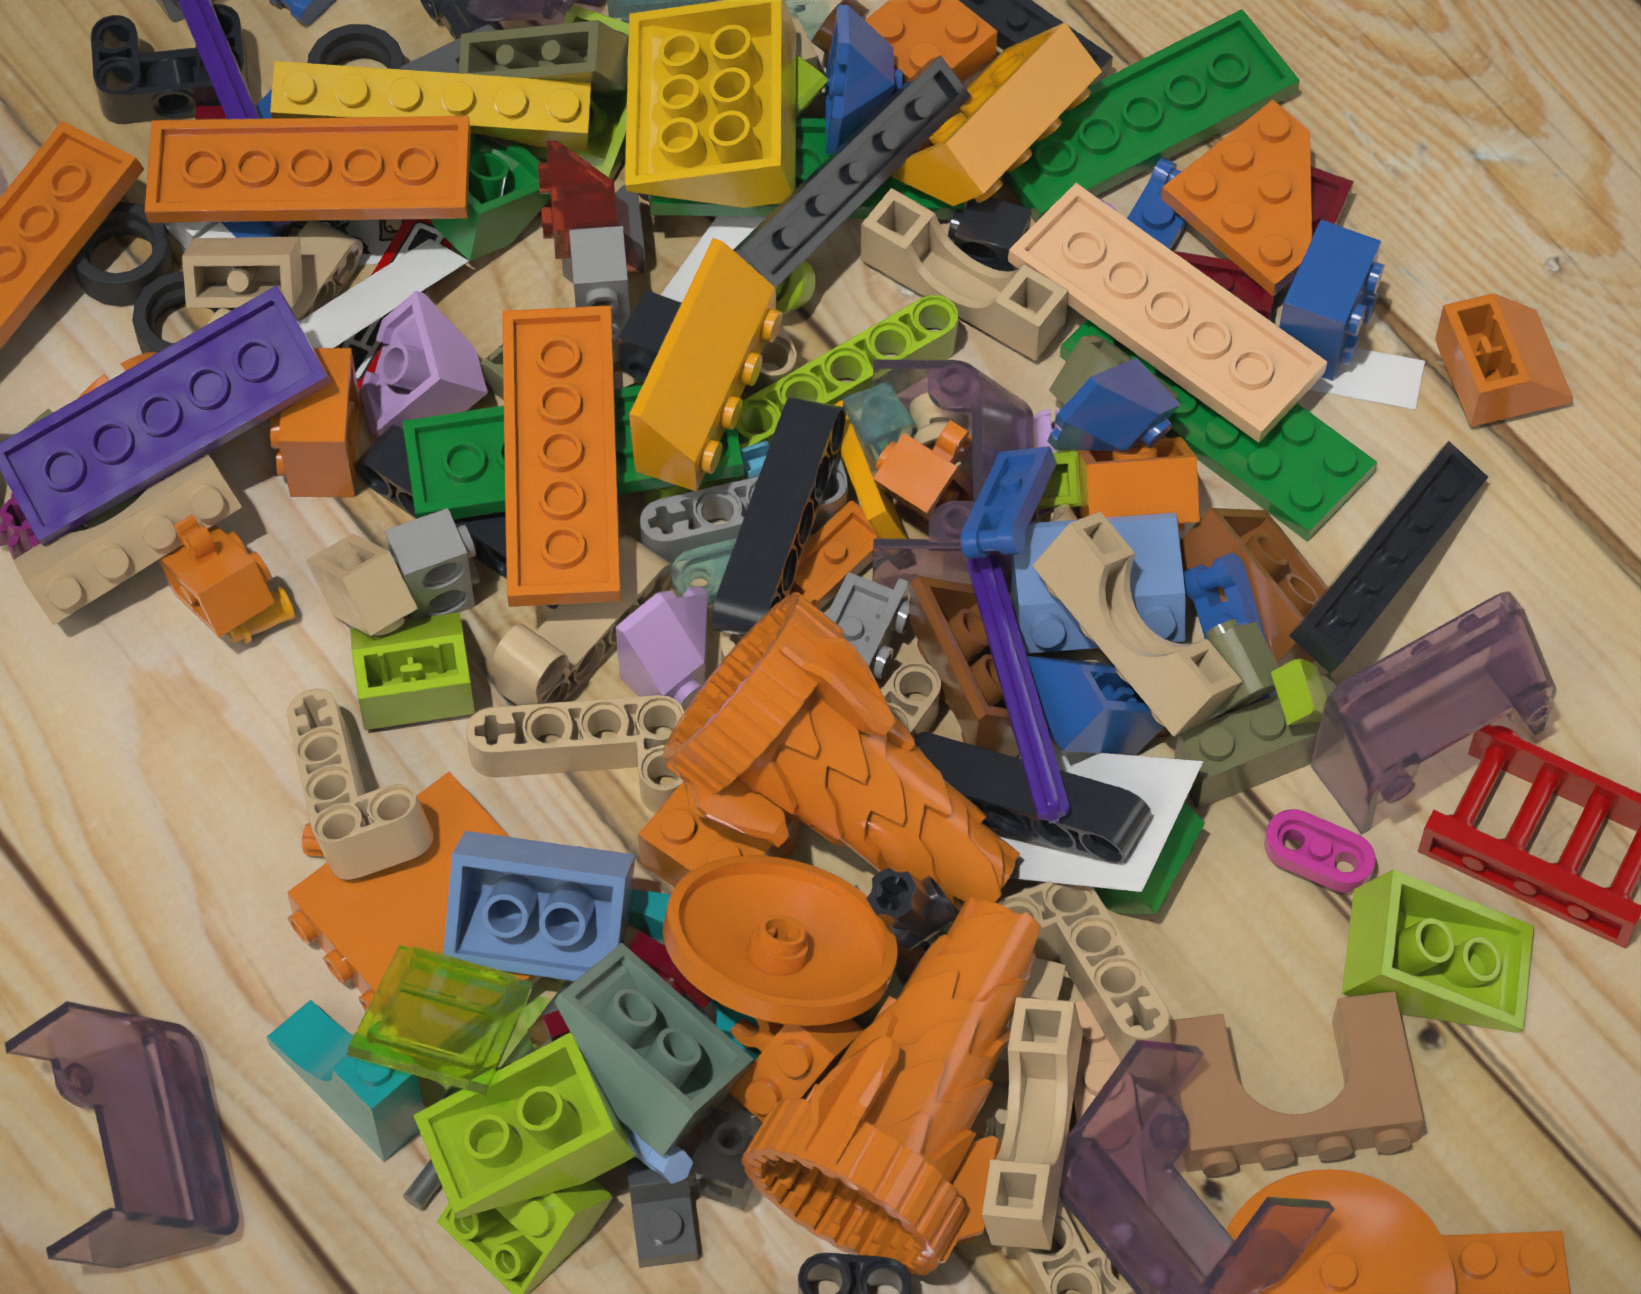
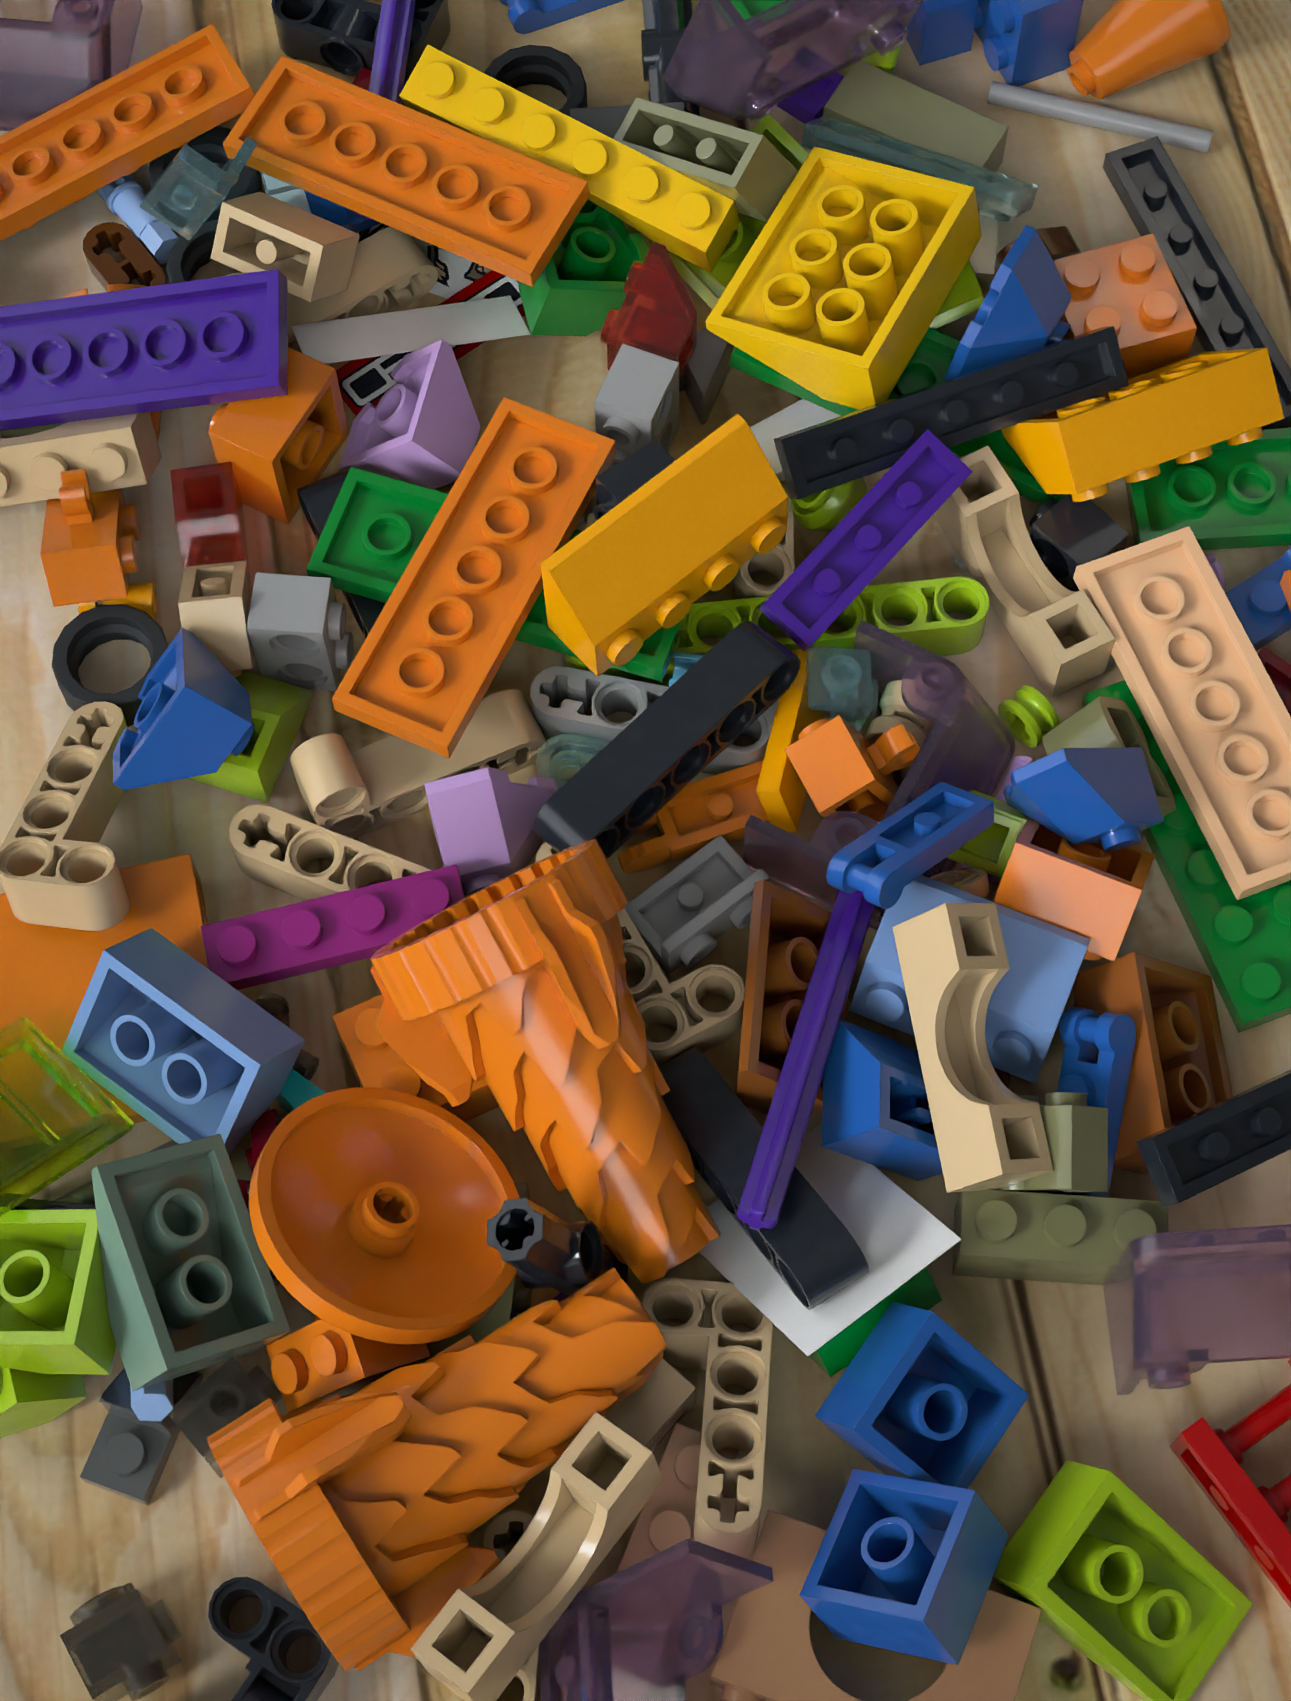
camera: 30 degrees right, 5 degrees up
(87, 308) = (123, 200): none -> light blue piece
(99, 349) = (136, 260): none -> reddish brown beam
(144, 256) = (193, 188): none -> clear light blue panel
(282, 628) = (96, 628): none -> black tyre
(300, 515) = (209, 515): none -> clear red slope
(395, 665) = (187, 718): none -> blue slope
(597, 771) = (325, 929): none -> magenta plate
(841, 299) = (865, 540): none -> dark purple plate
(1029, 379) = (1028, 716): none -> lime bush
(1234, 896) = (922, 1400): none -> blue brick
(1285, 1006) = (905, 1565): none -> blue brick
(1300, 691) = (1114, 1213): lime slope -> none
(1321, 849) = (1059, 1392): dark pink plate -> none

